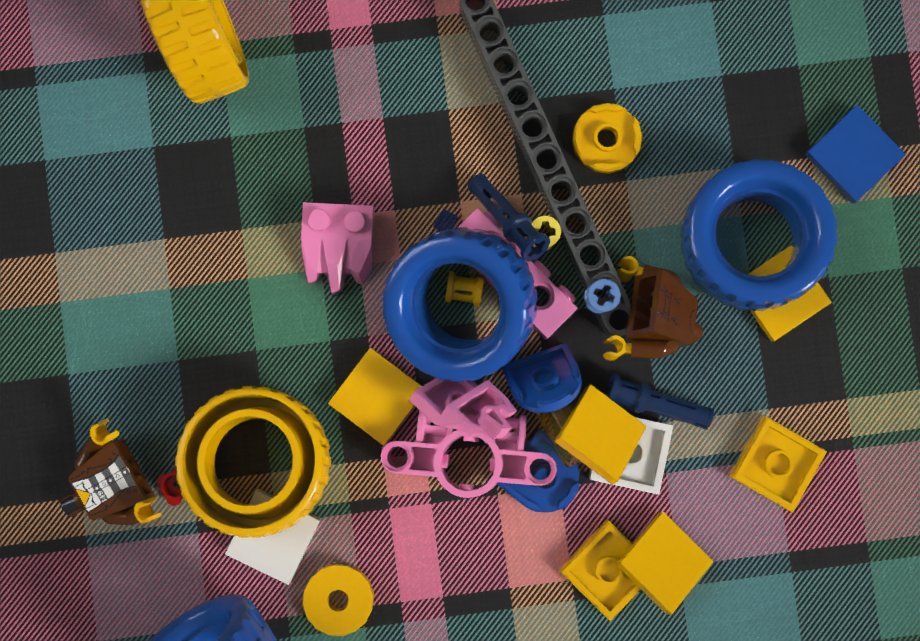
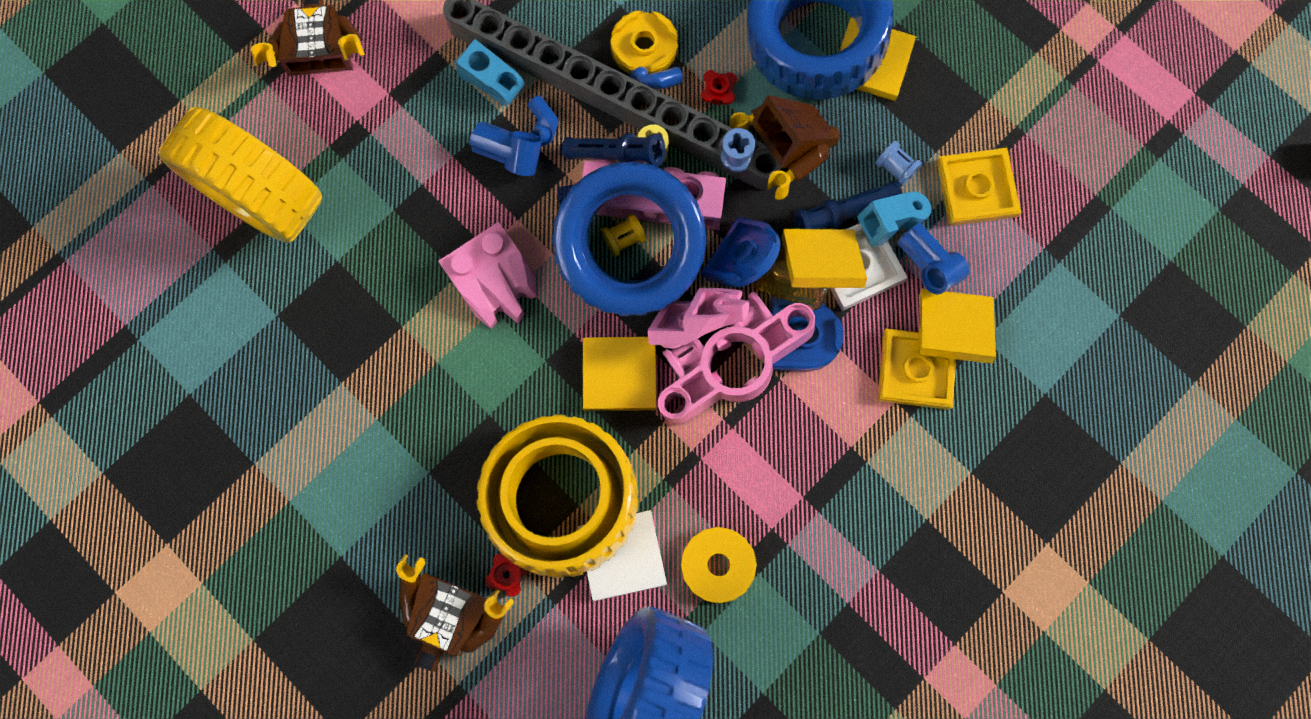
camera: 35 degrees left, 10 degrees down
(432, 154) = (515, 149): none -> blue piece
(460, 72) = (489, 73): none -> dark azure leg
(476, 147) = (546, 120): none -> blue arm
(591, 181) = (658, 80): none -> blue arm
(636, 233) = (715, 96): none -> red plate
(689, 507) = (939, 268): none -> blue piece
(697, 442) = (894, 213): none -> dark azure leg
(728, 398) = (898, 163): none -> medium blue bush

